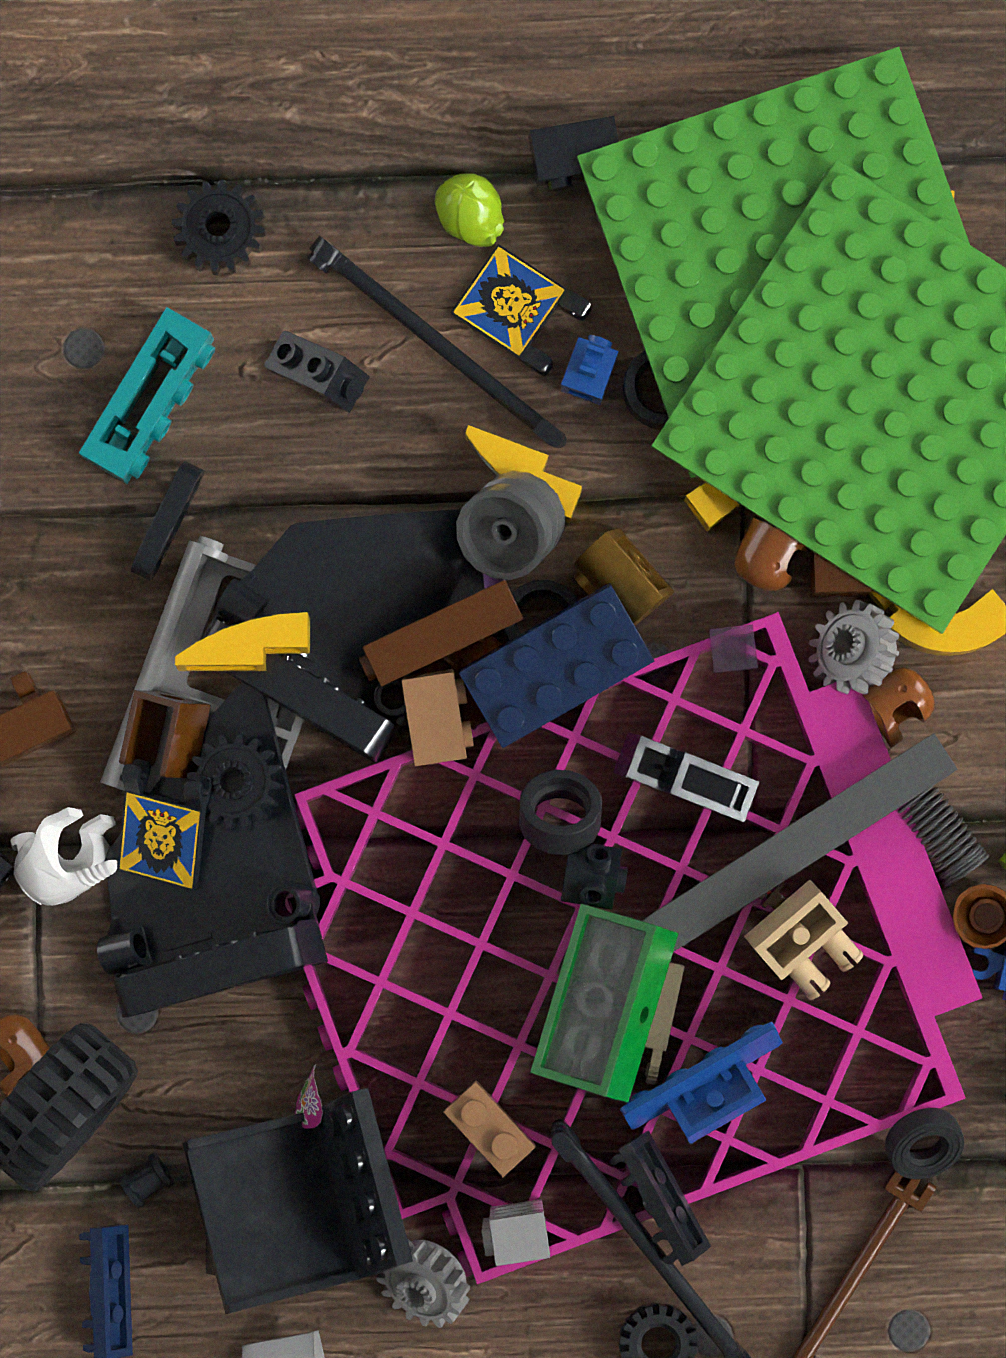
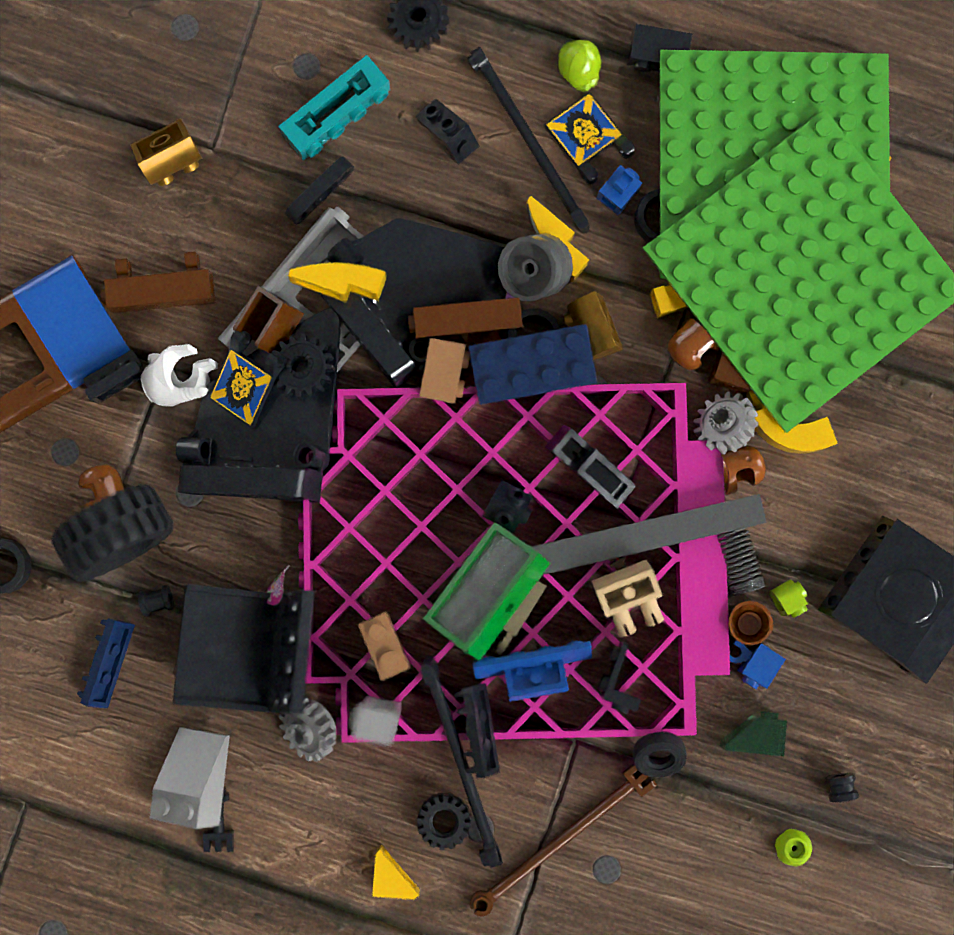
camera: 10 degrees right, 0 degrees up
(562, 785) = (496, 475): black tyre -> none
(733, 649) = (649, 395): clear purple plate -> none
(843, 1087) = (621, 700): none -> black bracket

